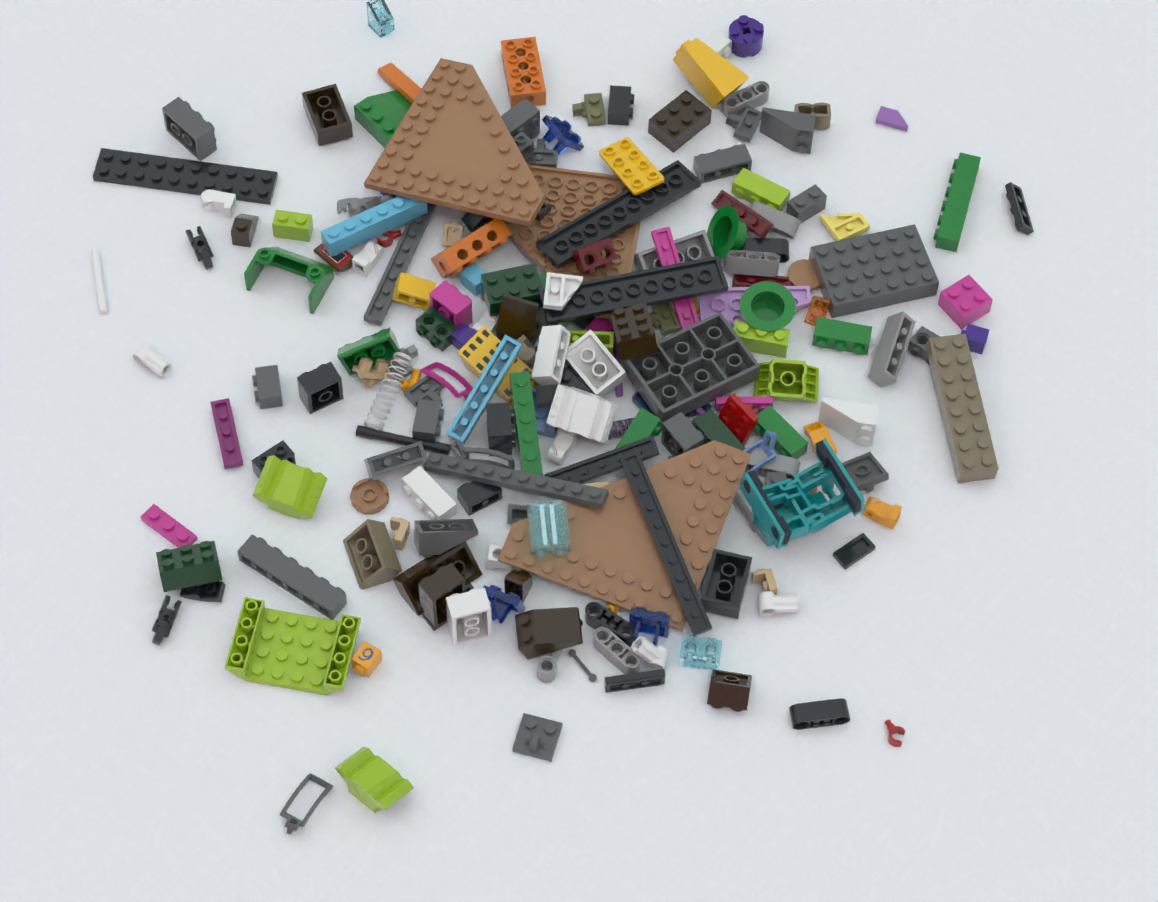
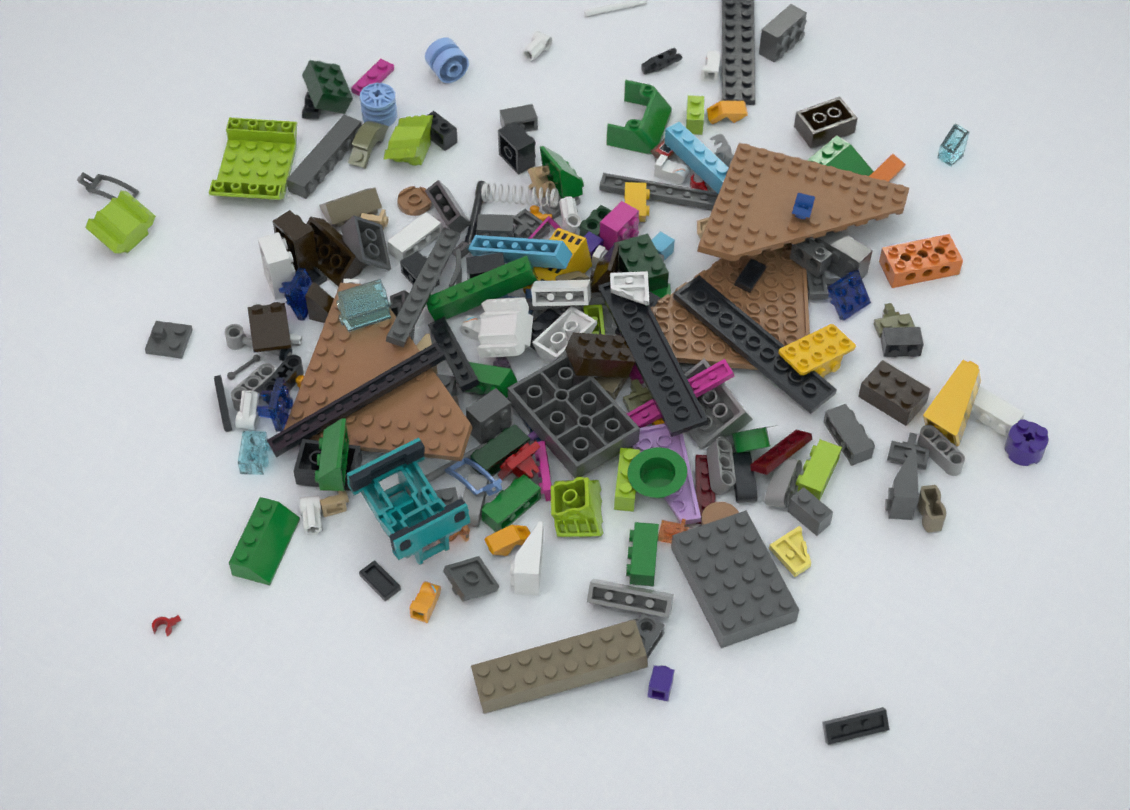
camera: 85 degrees right, 5 degrees down
(161, 627) = (281, 84): black hinge -> none
(174, 442) = (446, 60): none -> light blue wheel
(226, 433) = (468, 100): magenta plate -> none
(227, 517) = (378, 104): none -> light blue wheel
(244, 229) = (686, 83): dark brown slope -> none
(279, 528) = (364, 142): none -> olive arch
(291, 195) = (732, 109): none -> light orange slope
(366, 659) = (244, 212): light orange brick -> none
(430, 350) = (569, 214): none -> white piece
(471, 248) = (682, 230): orange brick -> none
(483, 135) = (803, 205): none -> blue bracket
(593, 251) = (689, 318): dark red brick -> none
(729, 690) = (214, 478): dark brown slope -> none
(737, 561) = (333, 457): none -> green slope
(807, 647) = (263, 542): none -> green slope
(819, 714) = (186, 556): black beam -> none
(891, 118) = (957, 591): medium lavender tile -> none
(958, 201) = (850, 660): green brick -> none
(965, 301) = (709, 670): dark pink brick -> none

